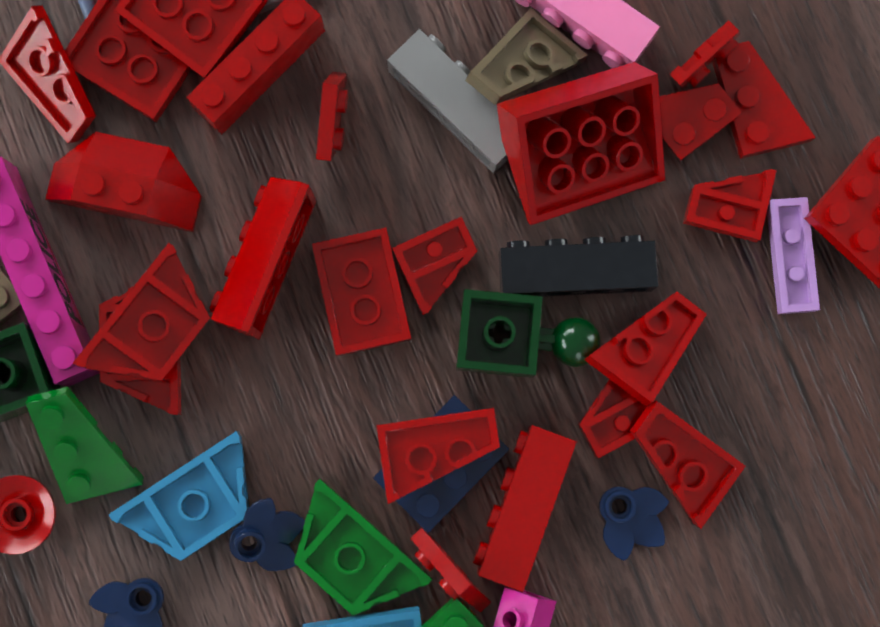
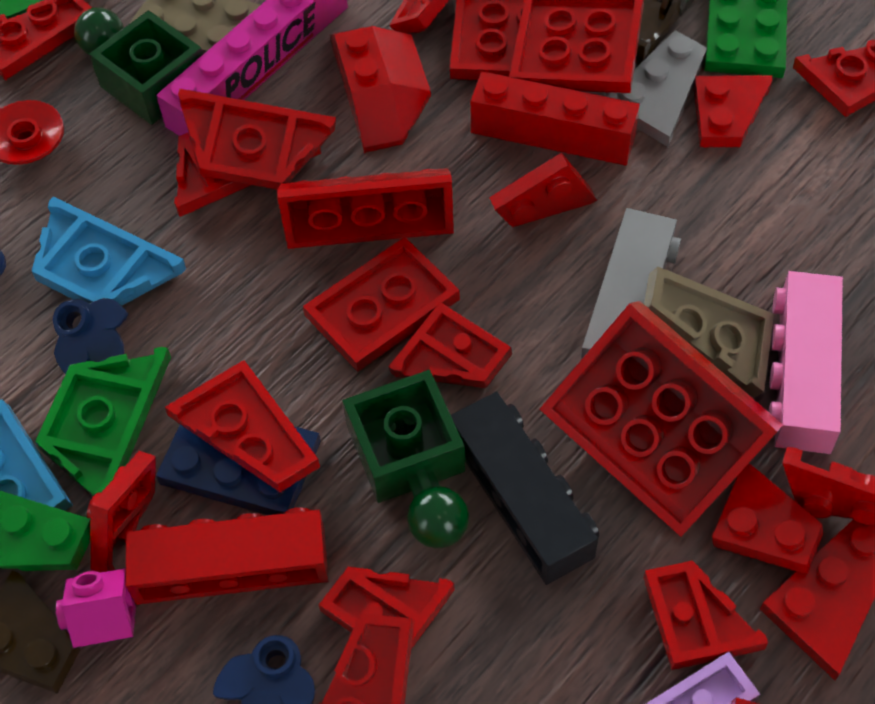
camera: 70 degrees right, 25 degrees down
(77, 449) = (99, 148): green wing -> none
(649, 348) = (472, 596): red wing -> none

